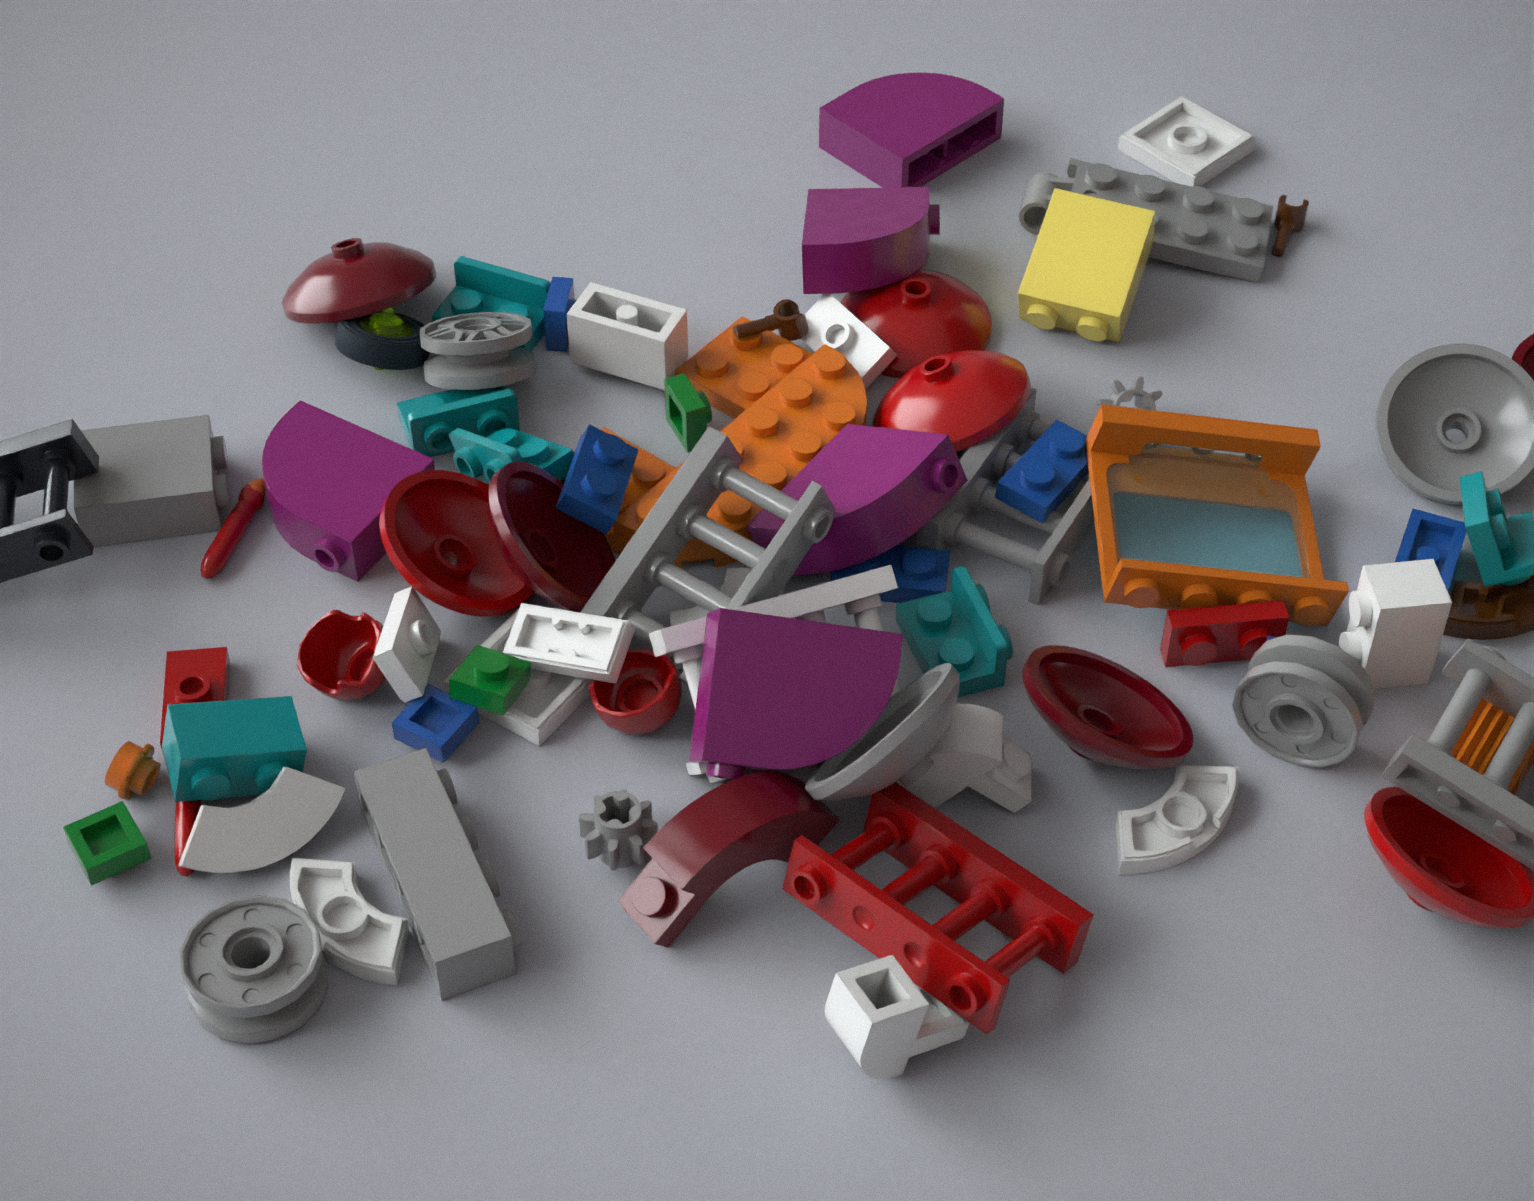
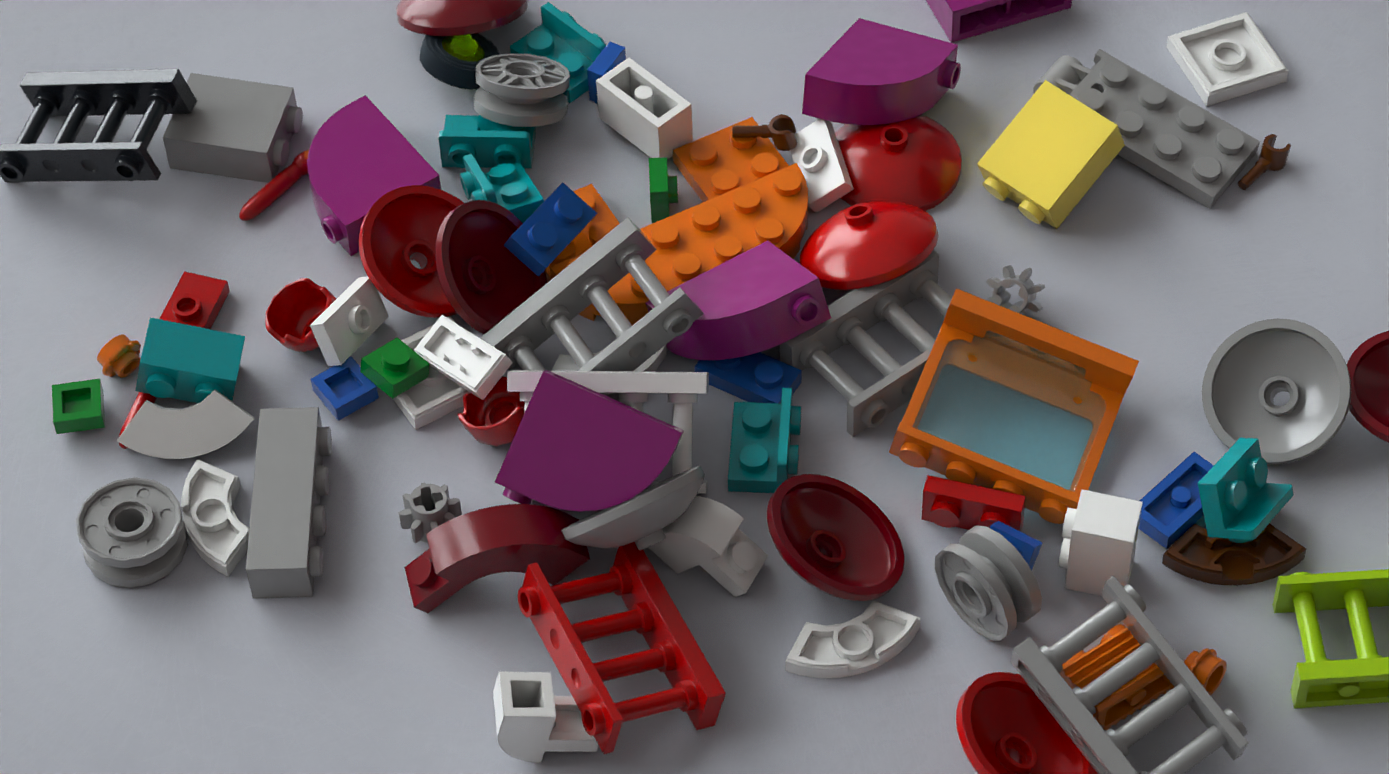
camera: 25 degrees right, 5 degrees up
(1045, 472) = (903, 329): blue plate -> none

